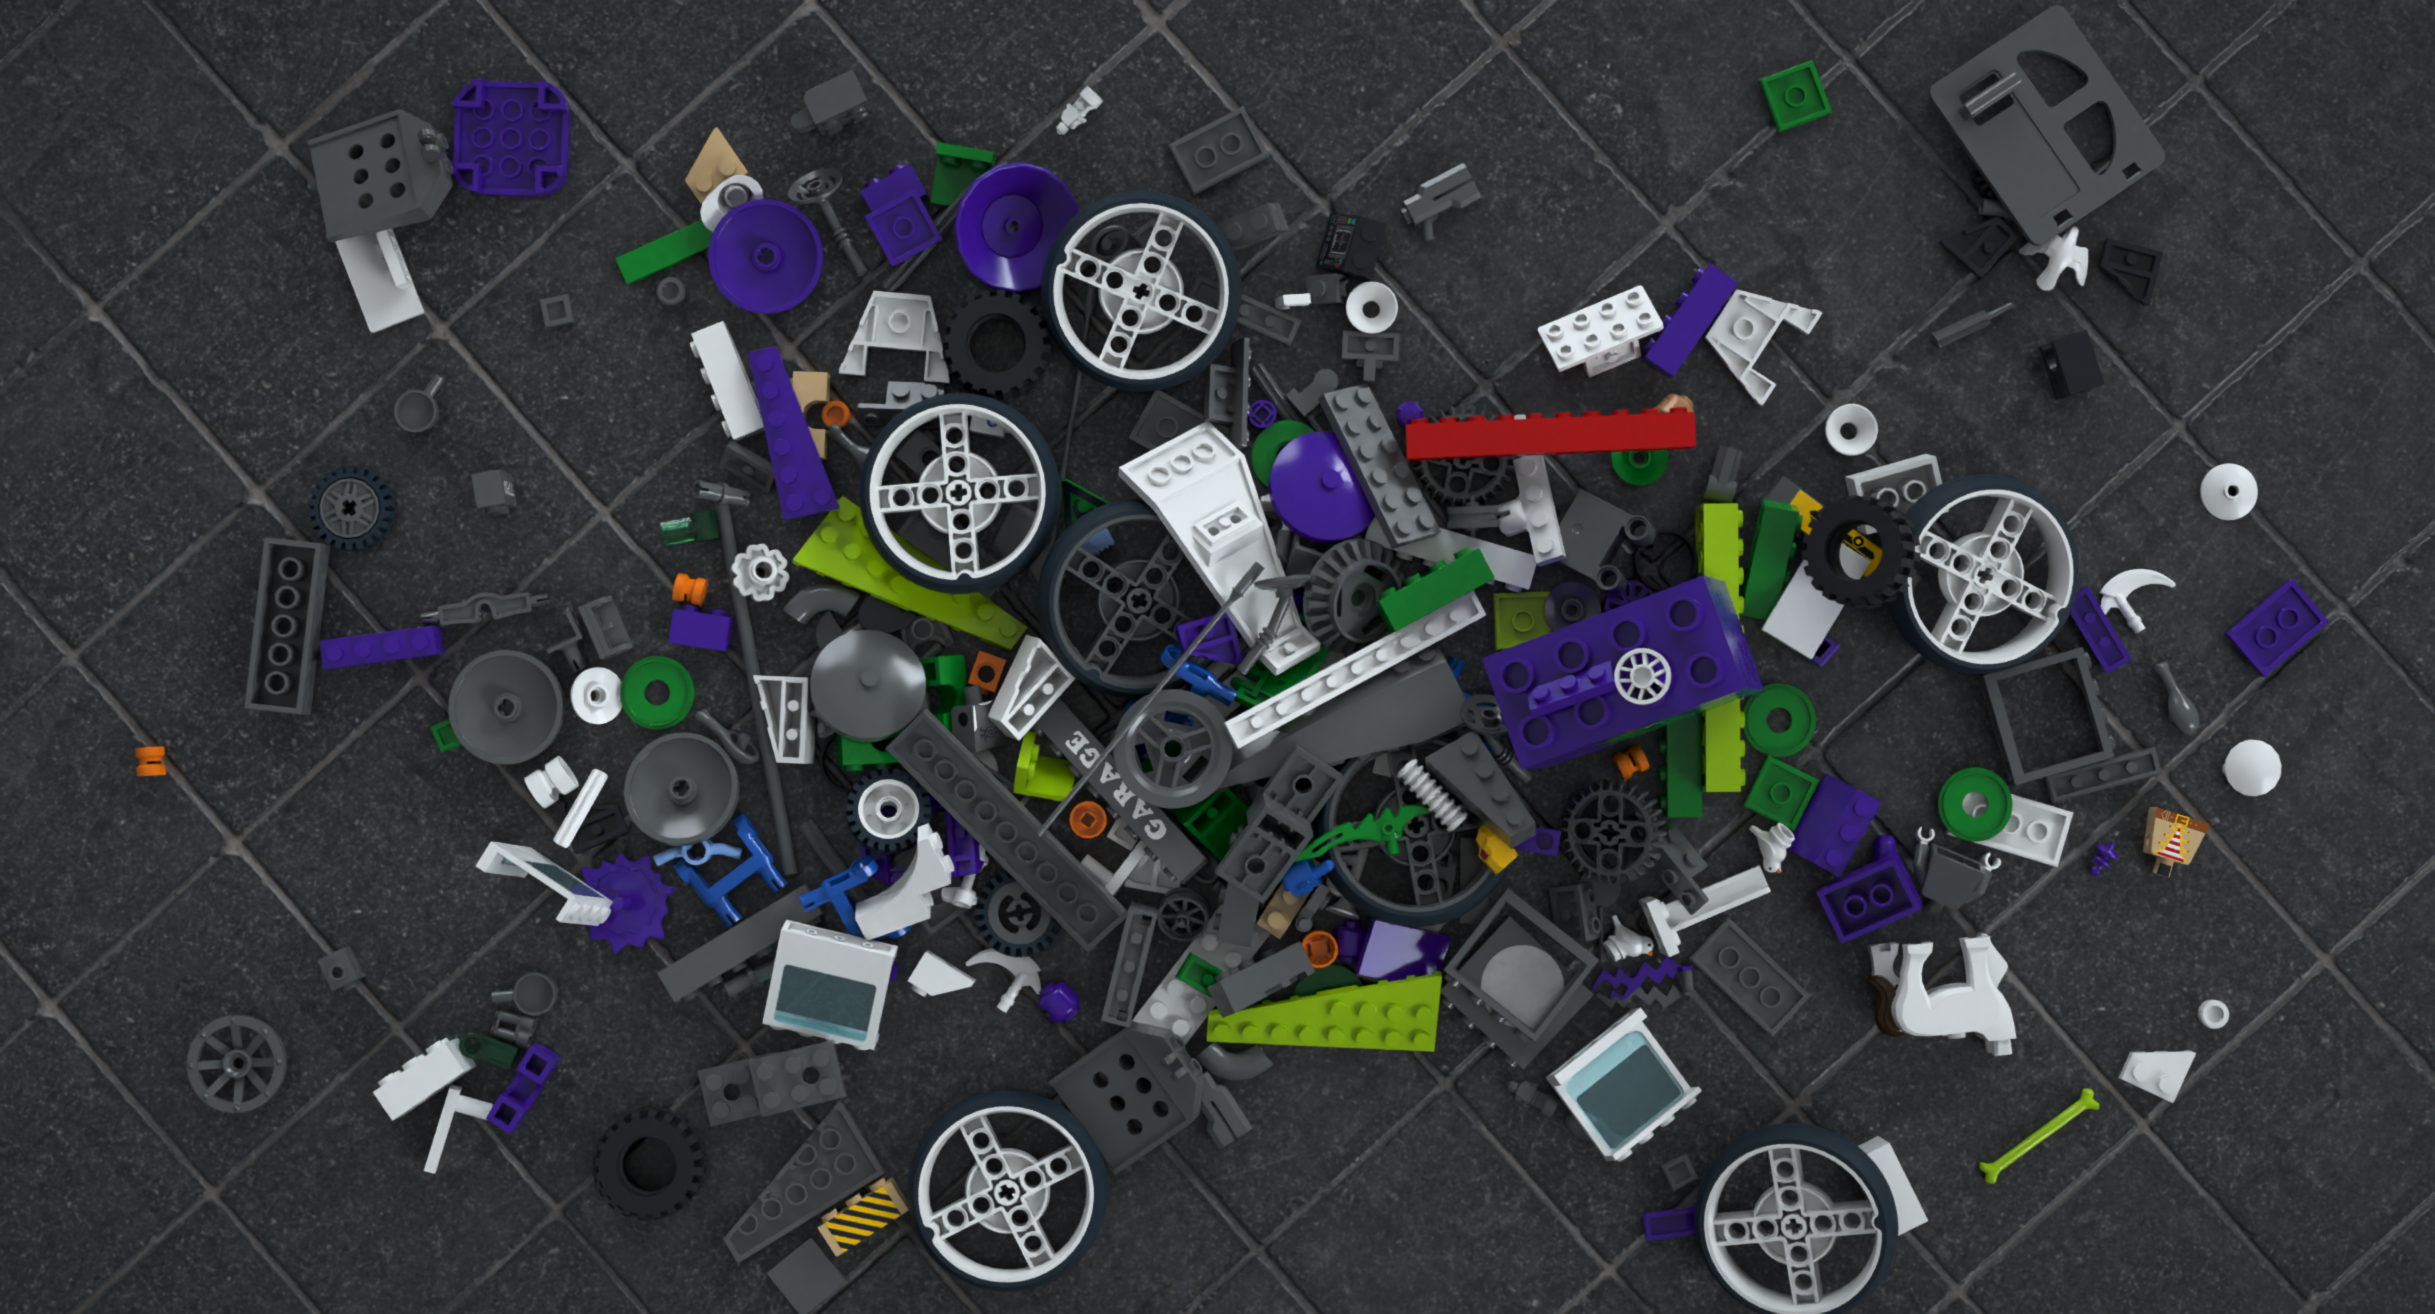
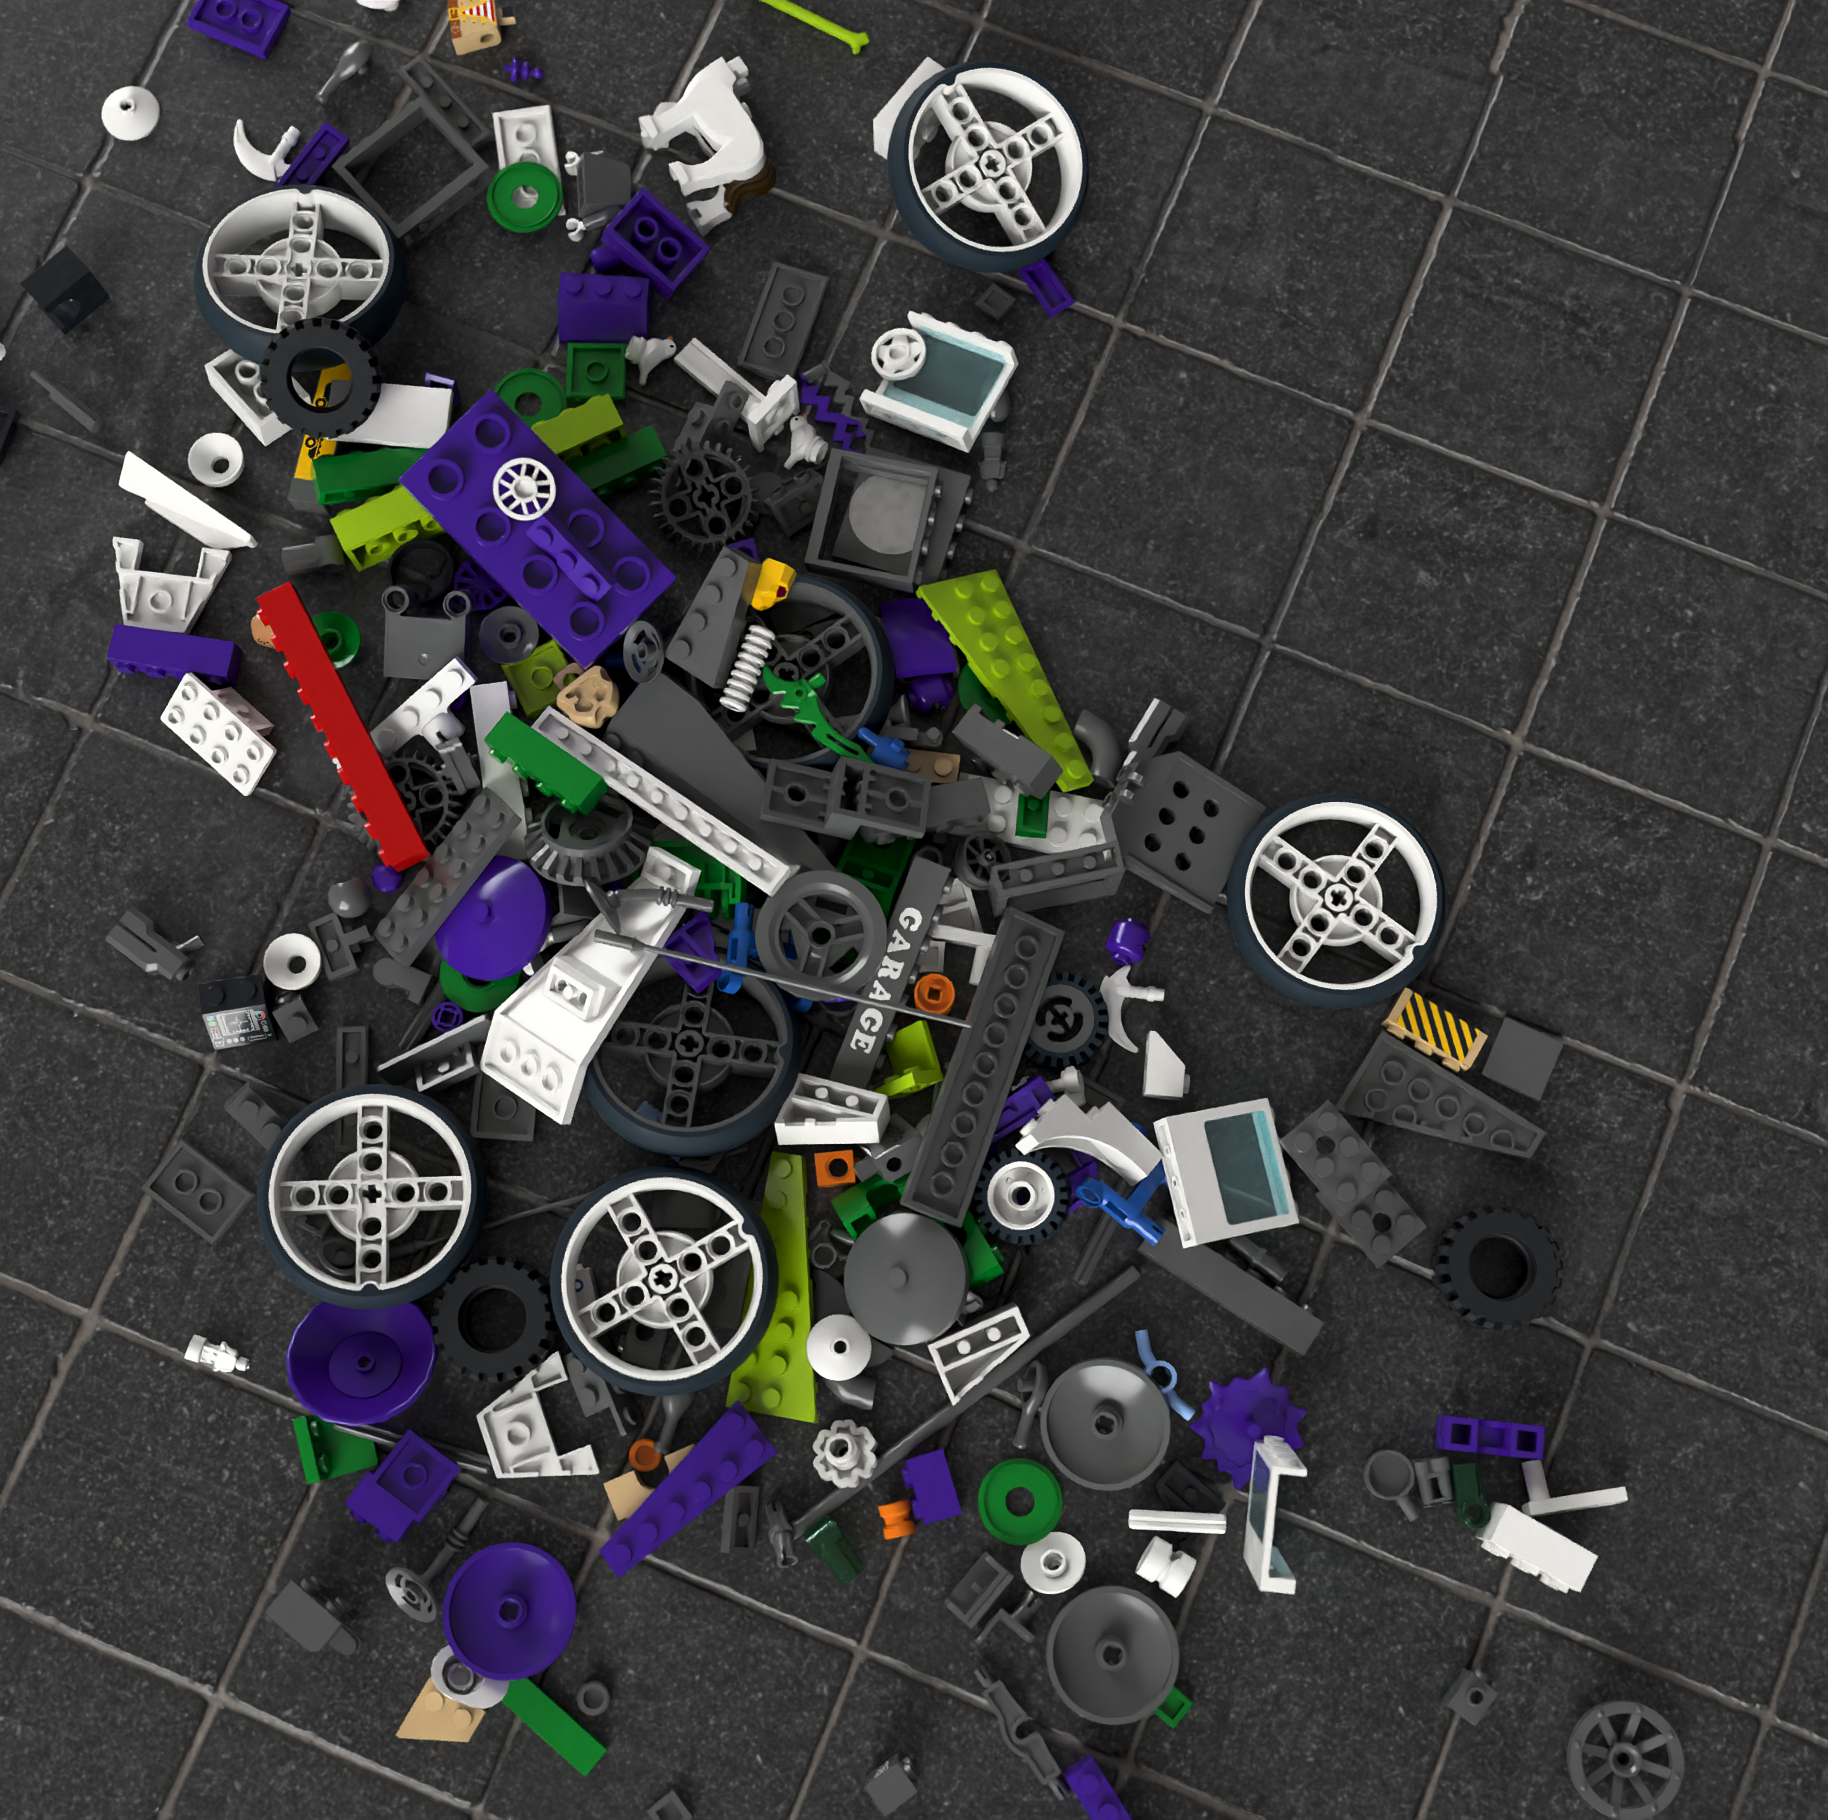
camera: 115 degrees left, 10 degrees down
(716, 895) = (1194, 1334): blue connector -> none
(729, 381) = (659, 1585): white brick -> none
(852, 596) = (822, 1353): none -> white dish
(1077, 501) = (624, 1156): black piece -> none
(1287, 301) = (320, 1045): white tile -> none
(1320, 947) = (948, 718): orange wheel -> none
(1405, 377) = (350, 897): none -> dark grey piece
(1472, 645) = (589, 698): none -> tan piece
(1624, 764) = (631, 515): orange wheel -> none
(1669, 1063) = (899, 355): none -> white wheel
(1821, 382) = (181, 506): none -> white wedge

